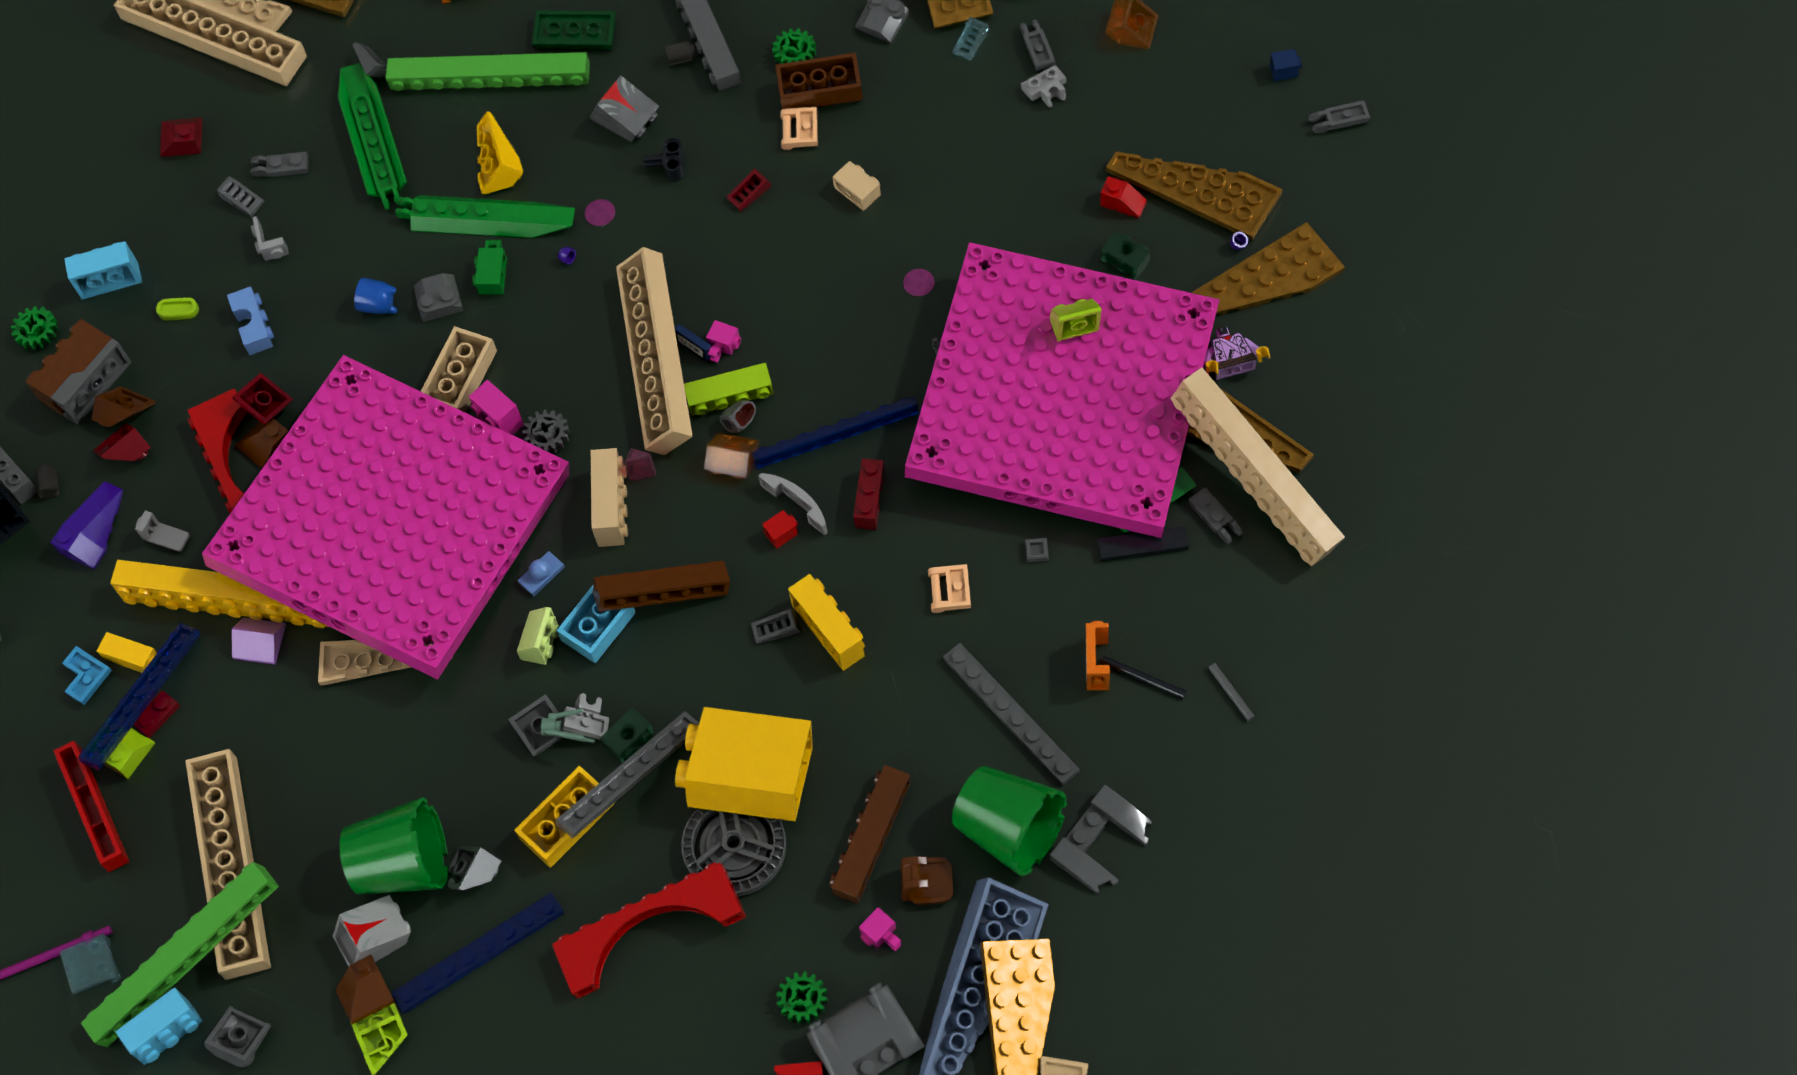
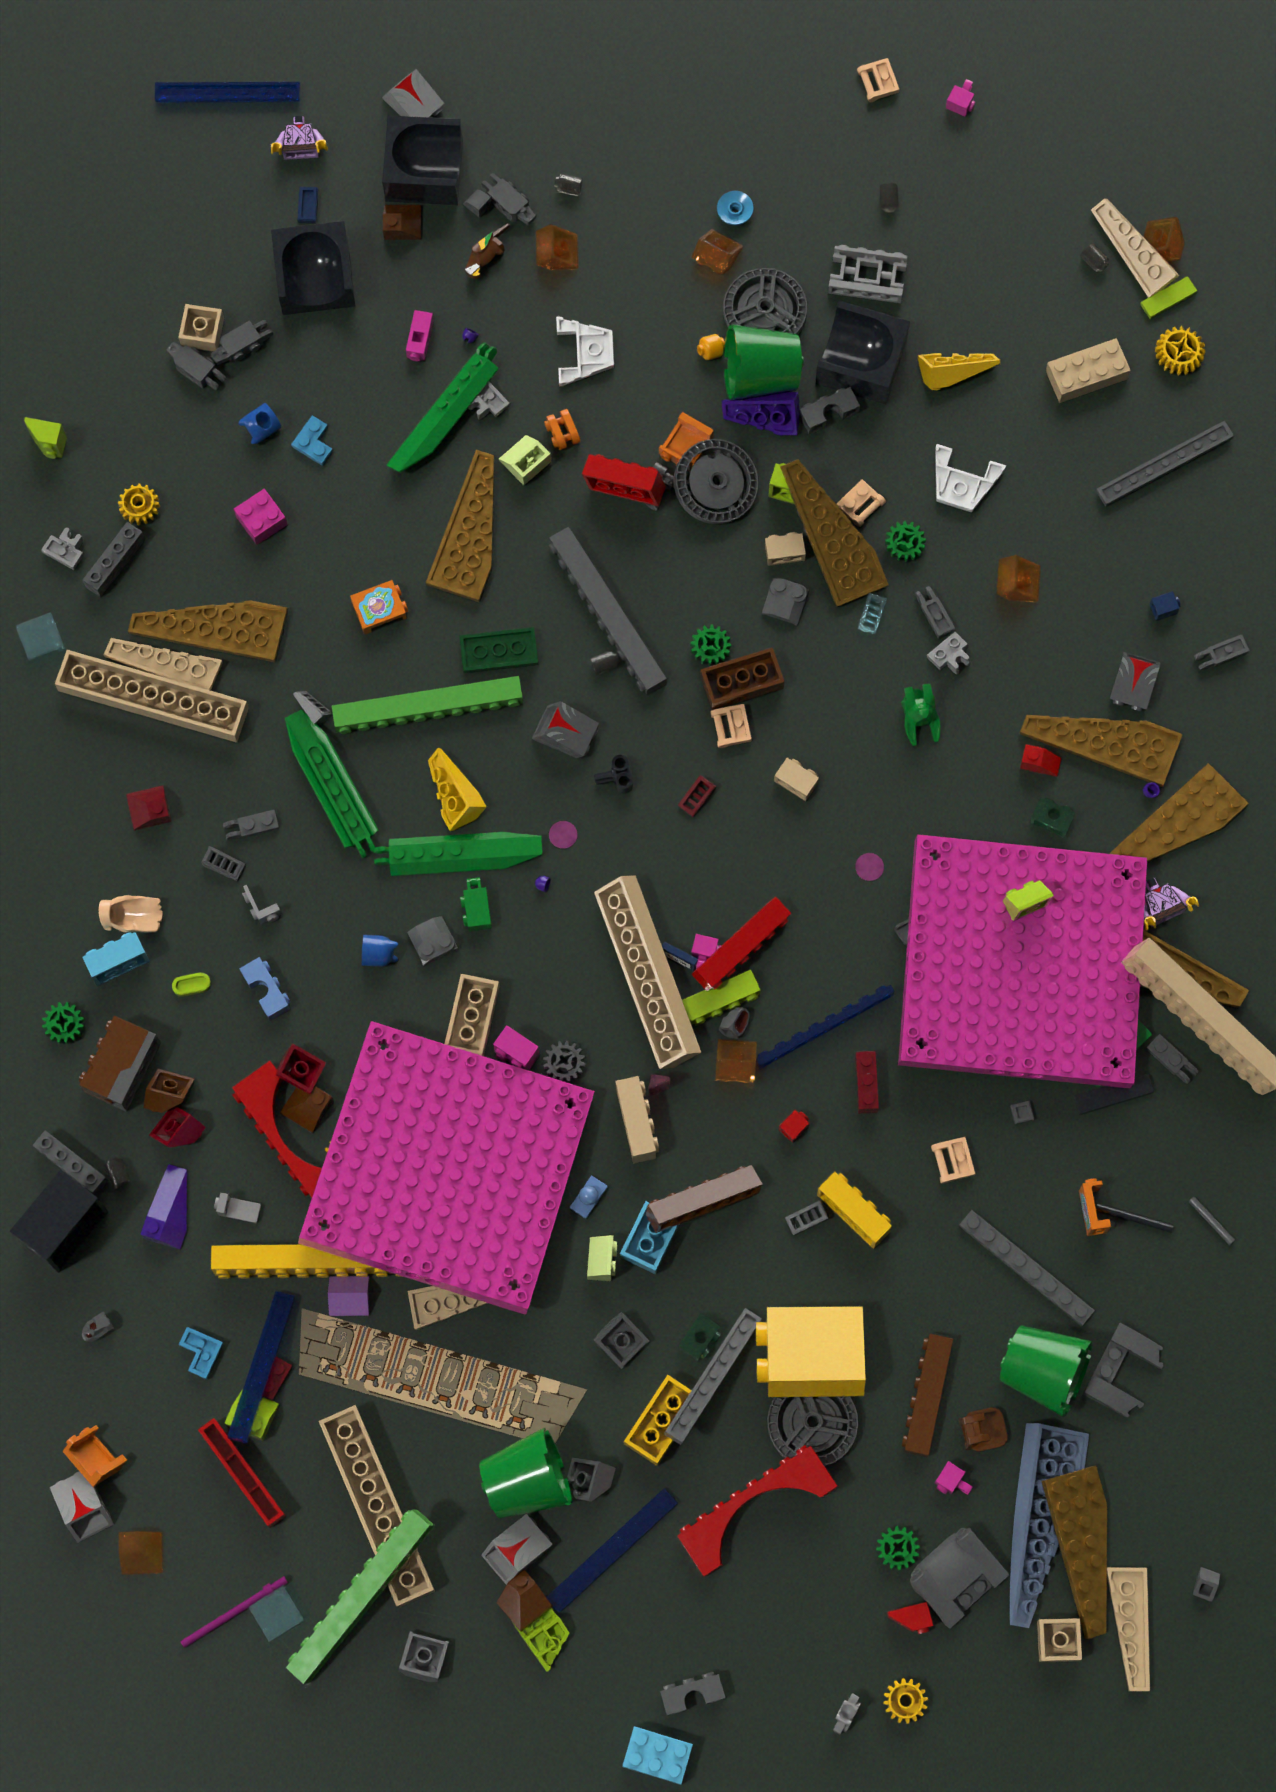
camera: 15 degrees left, 10 degrees up
(125, 652) = (236, 1326): yellow brick -> none
(138, 230) = (131, 913): none -> light nougat hair
(159, 1026) = (356, 1660): medium azure brick -> none
(328, 739) = (433, 1378): none -> sticker
(552, 727) = (635, 1343): sand green plant -> none
(588, 722) = (659, 1328): light grey plate -> none
(760, 335) = (739, 945): none -> red brick
(777, 485) = (781, 1084): light grey slope -> none
(1001, 133) = (920, 711): none -> green piece
(1239, 131) = (1134, 681): none -> dark grey slope

